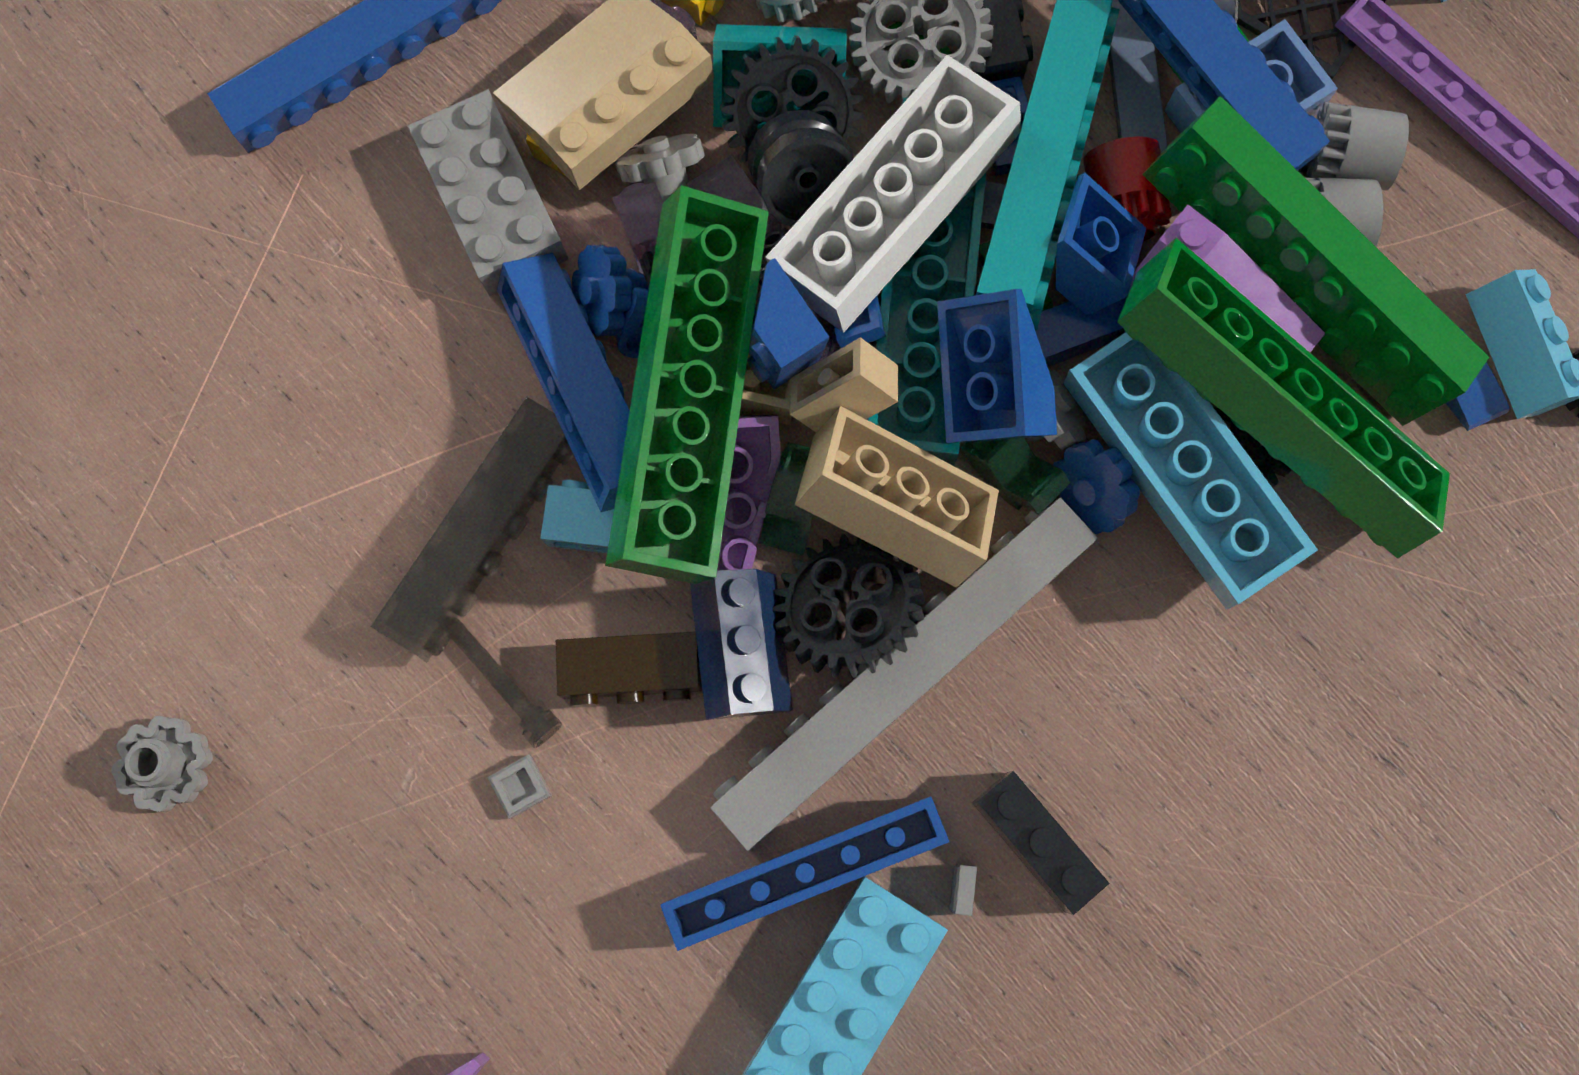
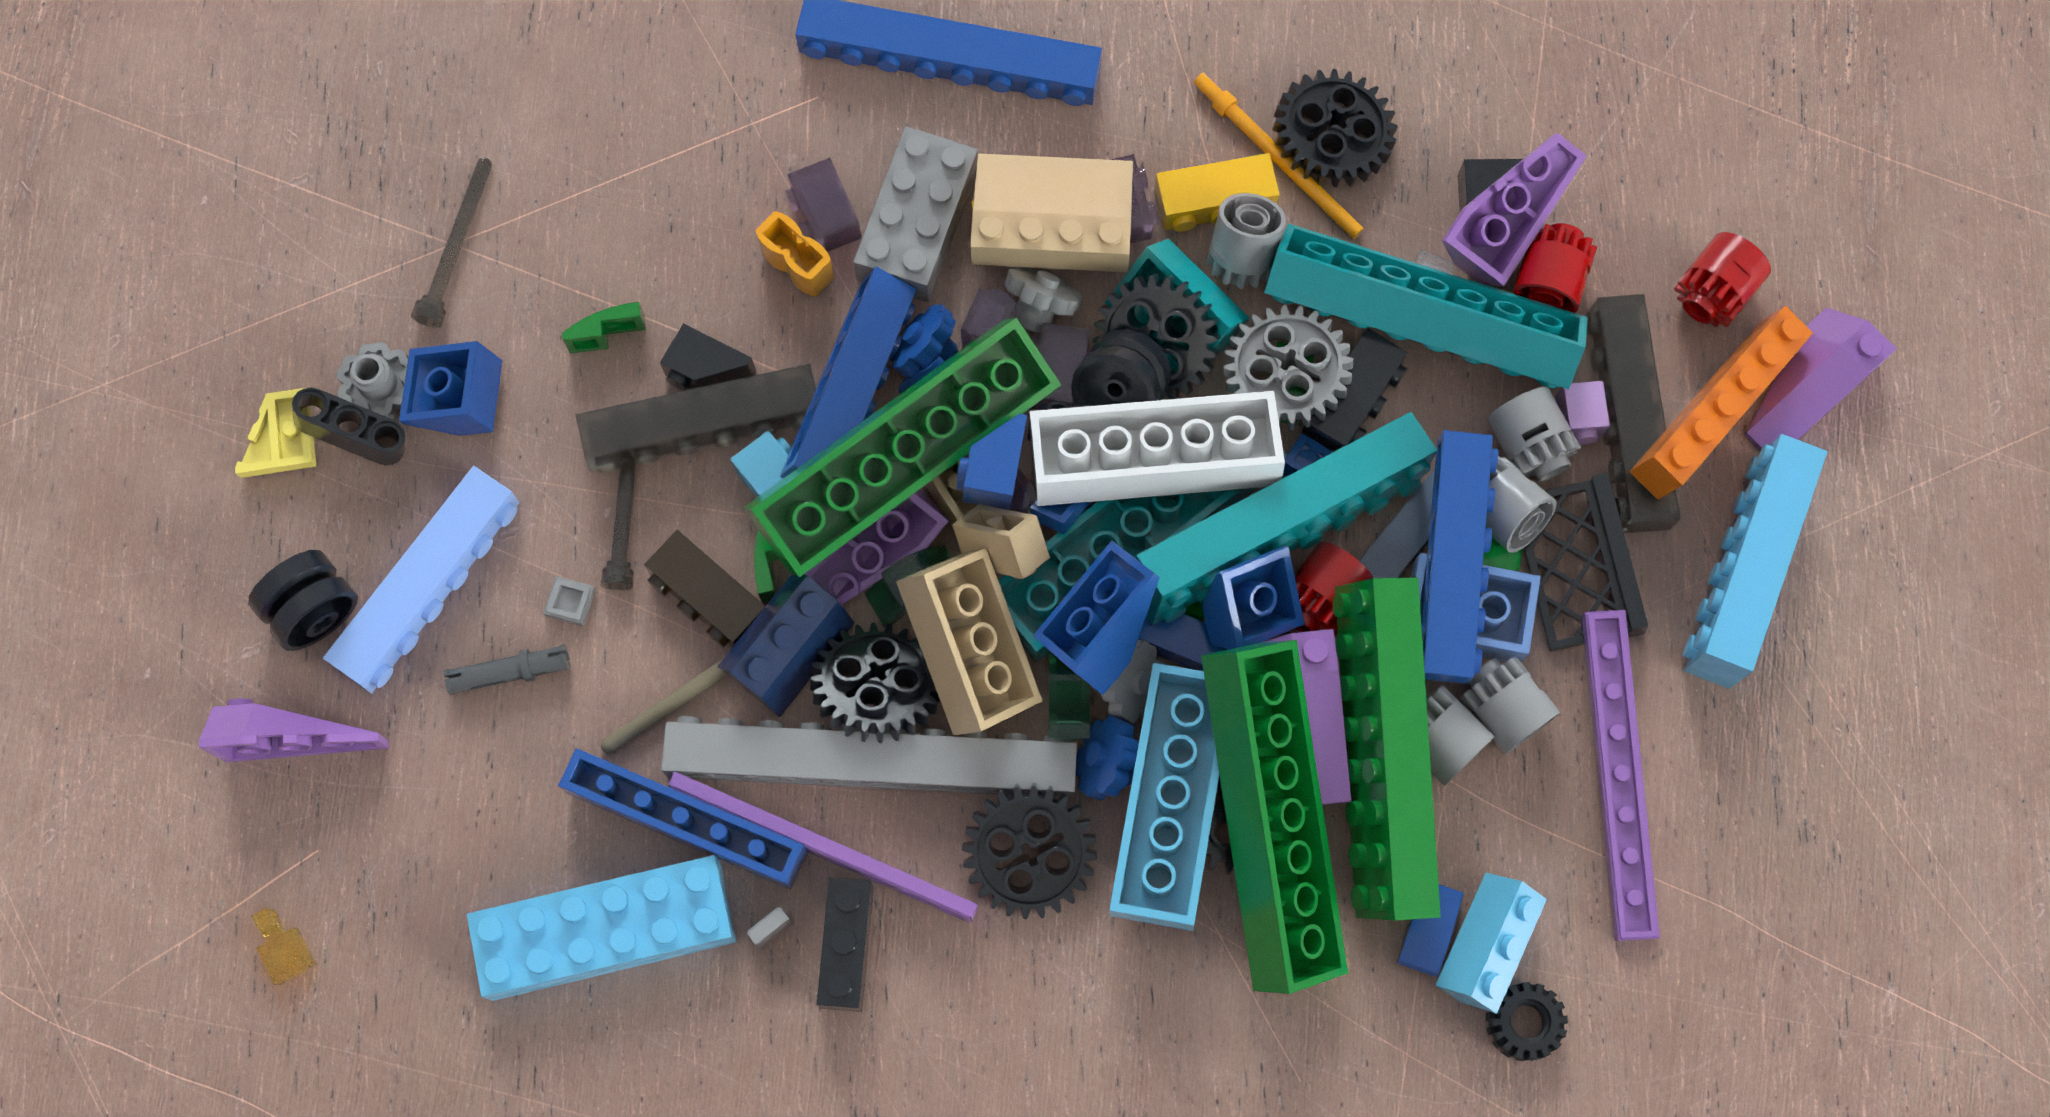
camera: 40 degrees right, 5 degrees down
(121, 890) = (275, 440): none -> light yellow wing
(144, 657) = (430, 309): none -> clear smoke piece
(153, 822) = (336, 411): none -> black beam
(235, 707) = (451, 388): none -> blue slope
(289, 1013) = (302, 600): none -> black wheel
(309, 545) = (593, 331): none -> green slope
(376, 893) = (422, 580): none -> light blue brick
(402, 258) = (823, 205): none -> clear purple brick
(427, 316) = (796, 254): none -> light orange brick
(432, 480) = (701, 361): none -> black slope
(537, 878) = (522, 666): none -> dark grey pin
(669, 611) = (762, 556): none -> green slope
(690, 795) = (662, 708): none -> dark tan piece
(940, 781) = (831, 850): none -> medium lavender tile
(1143, 634) = (1047, 883): none -> black gear

